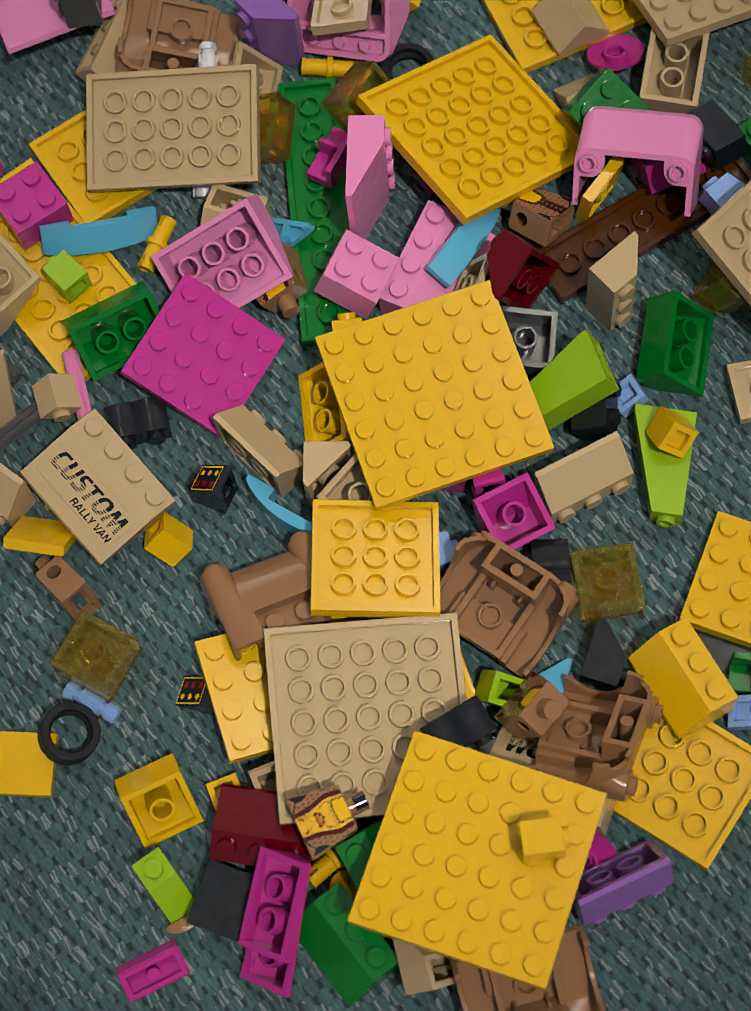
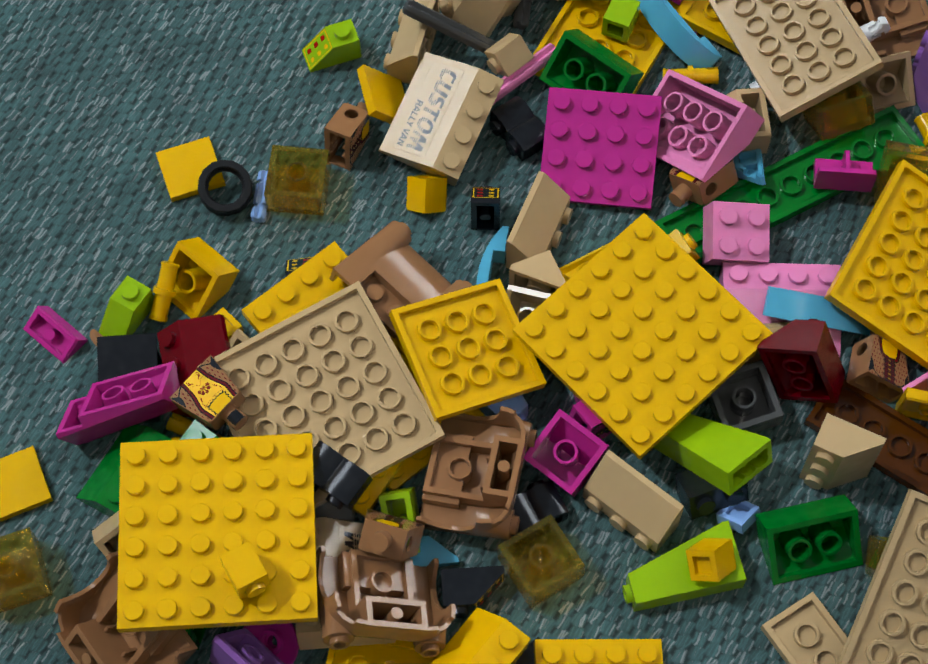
camera: 60 degrees right, 5 degrees down
(162, 836) = (164, 291): none -> yellow pin
(368, 171) = (825, 198): bright pink slope -> none

